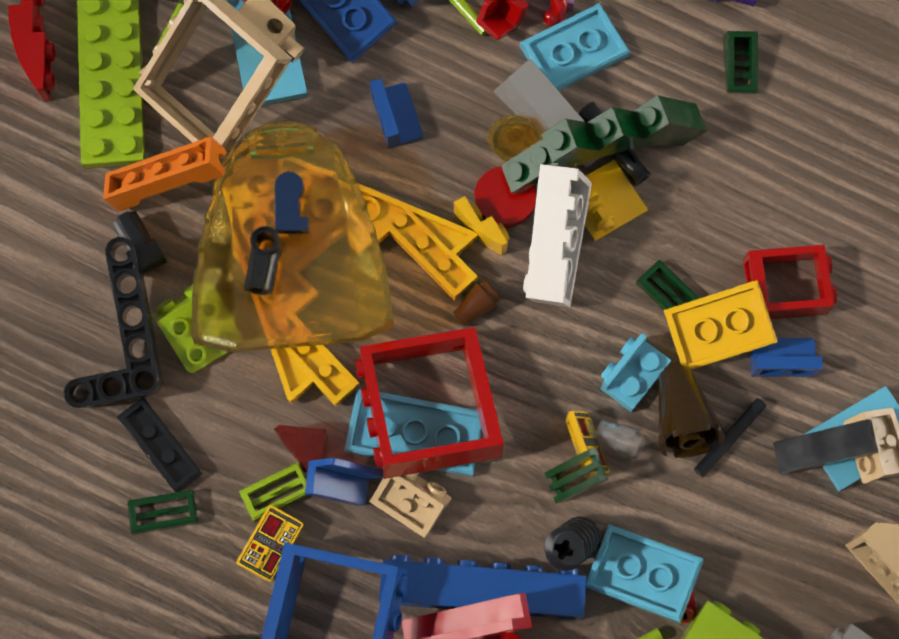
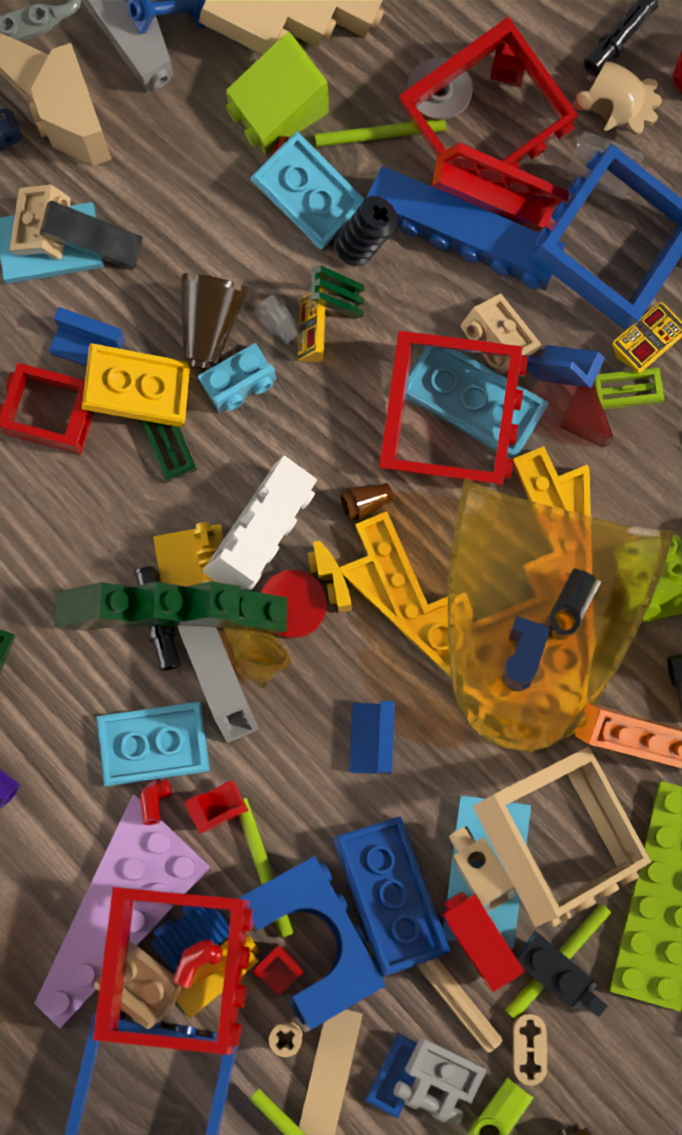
camera: 155 degrees left, 5 degrees up
(731, 437) = (169, 289): black bar -> none

